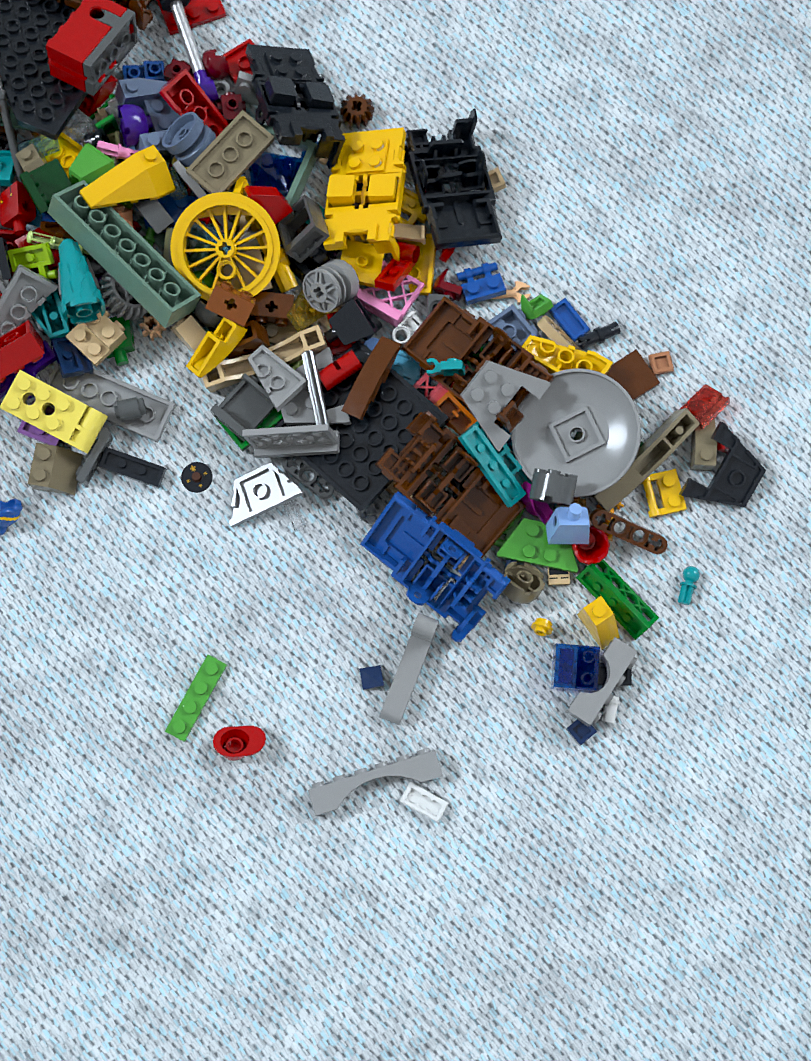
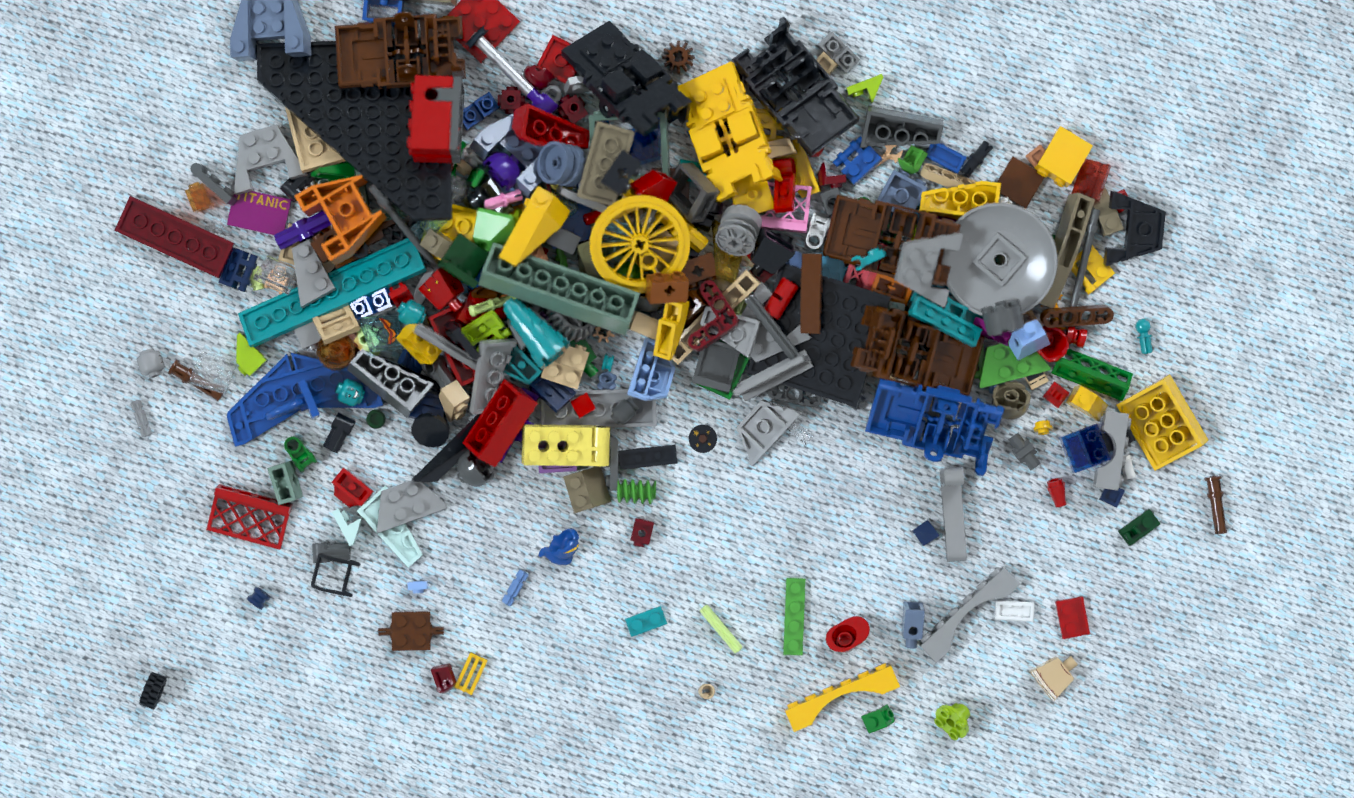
camera: 25 degrees left, 10 degrees up
(45, 629) = (646, 621): none -> teal plate
(65, 735) = (706, 695): none -> tan hinge
(94, 386) = (583, 405): none -> red slope
(95, 538) = (641, 524): none -> dark red brick
(100, 495) = (636, 491): none -> bright green piece
(115, 674) = (720, 628): none -> yellowish green axle
(131, 375) = (607, 381): none -> sand blue plate
(141, 358) = (607, 362): none -> teal bush
(154, 803) = (878, 681): none -> yellow arch
(173, 385) = (651, 374): none -> light blue wedge
(228, 847) = (878, 719): none -> green bracket
(246, 157) = (623, 161): none -> black brick
(266, 362) = (718, 322): none -> dark red beam
(304, 886) = (953, 720): none -> lime plate
(315, 755) = (912, 616): none -> sand blue torso
(433, 891) = (1054, 675): none -> tan torso
(481, 839) = (1072, 617): none -> red plate
(512, 642) = (1024, 451): none -> dark grey axle
(513, 177) = (838, 52): none -> light grey slope
(526, 699) = (1056, 489): none -> red cone
(527, 217) = (870, 85): none -> lime slope
(532, 267) = (899, 128): none -> dark grey wedge
(571, 601) = (1056, 394): none -> red tile
(594, 778) = (1139, 527): none -> dark green plate
(614, 547) = (1076, 336): none -> red wheel
(668, 681) = (1163, 422): none -> yellow slope
(683, 451) = (1091, 229): none -> dark grey bar
(686, 371) = (1063, 157): none -> yellow panel
(689, 782) = (1215, 495): none -> reddish brown pin

